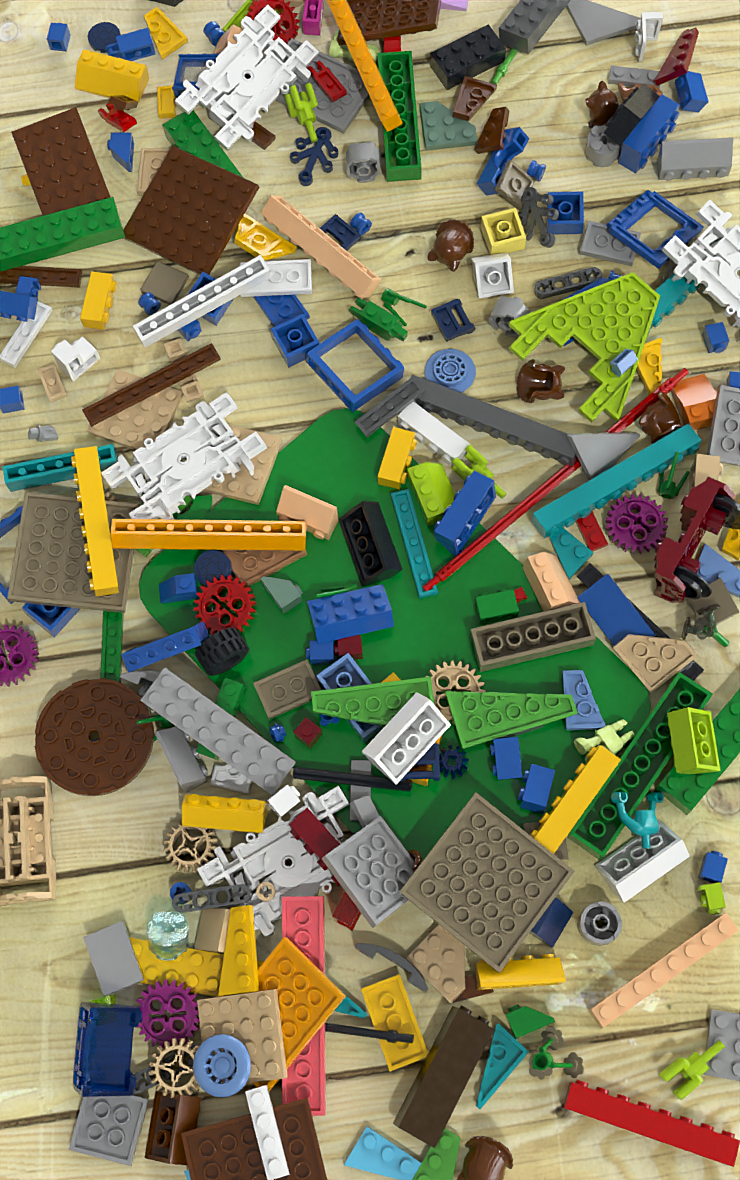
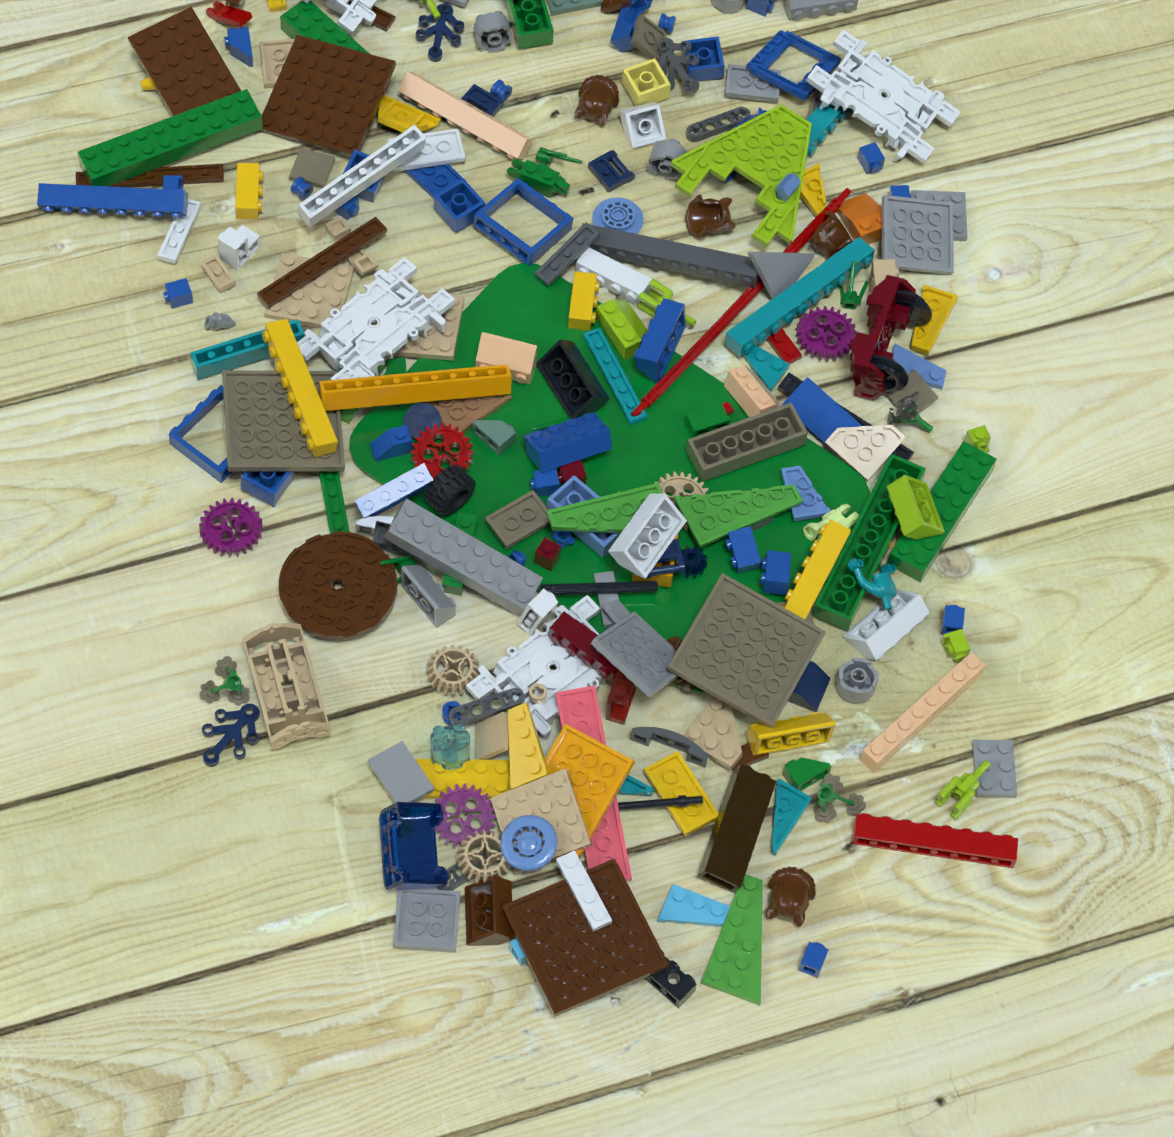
camera: 20 degrees left, 10 degrees down
(224, 813) = (482, 631): yellow slope -> none
(230, 779) = (479, 608): white tile -> none

